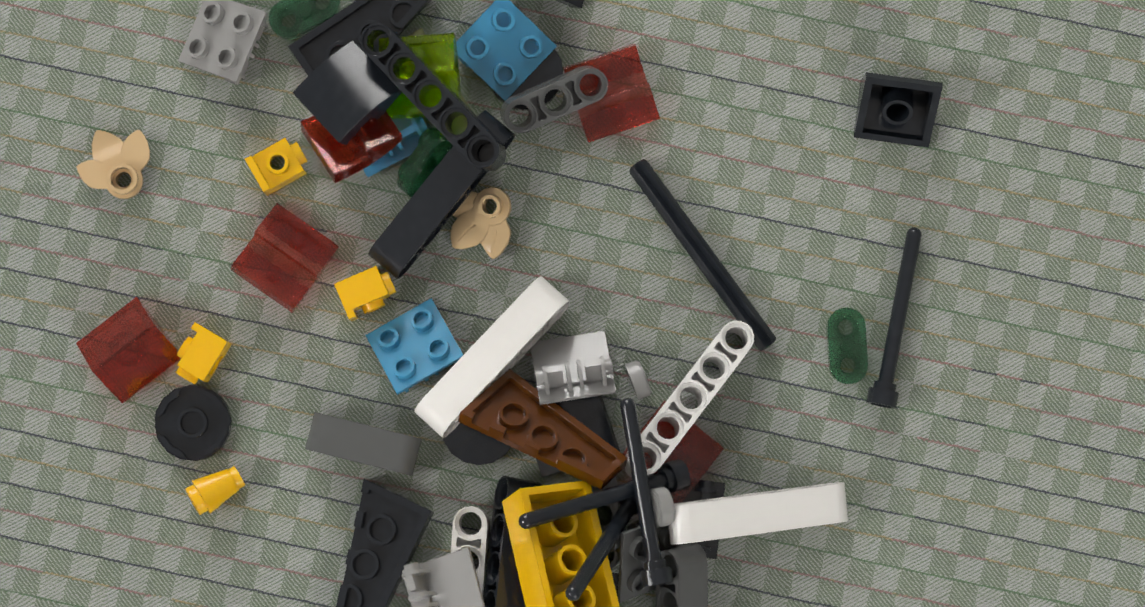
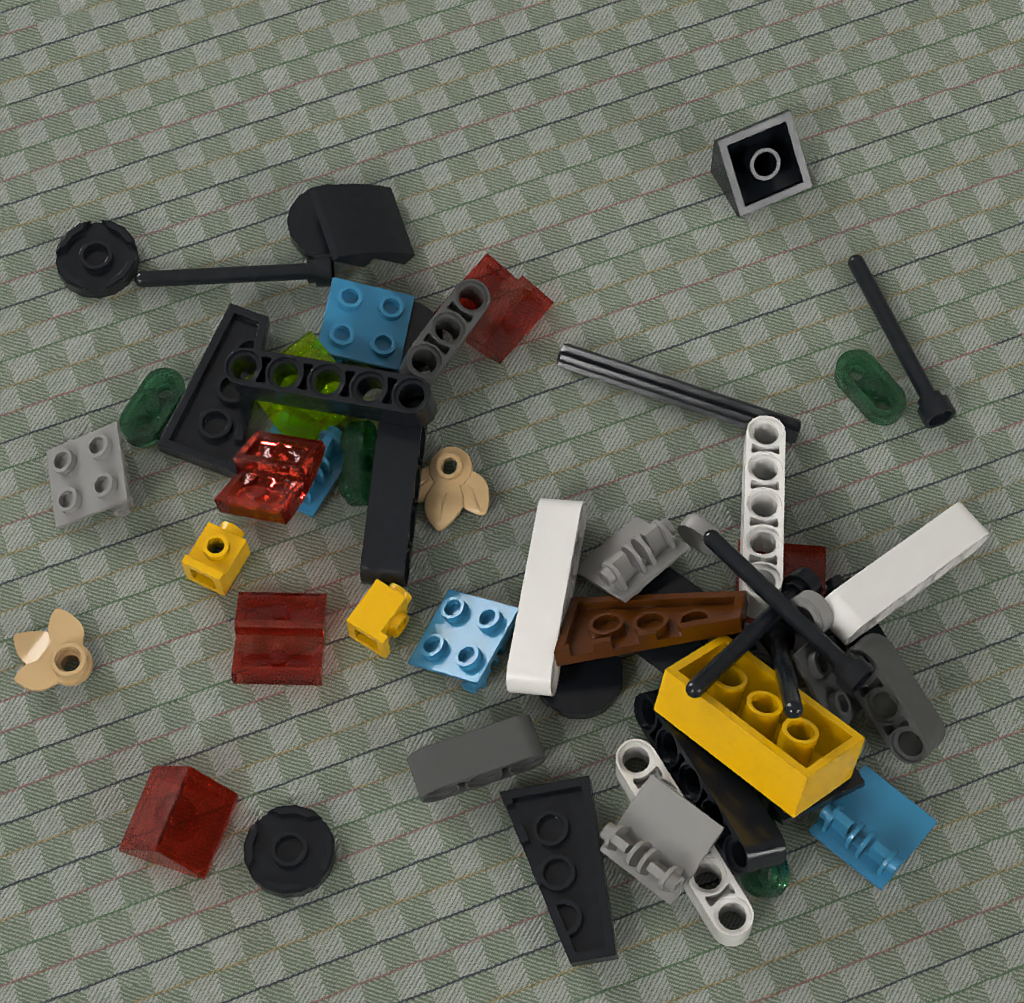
camera: 30 degrees left, 20 degrees down
(201, 354) = (256, 775): yellow brick -> none
(214, 489) = (353, 901): yellow cone -> none
(347, 92) = (243, 439): black slope -> none

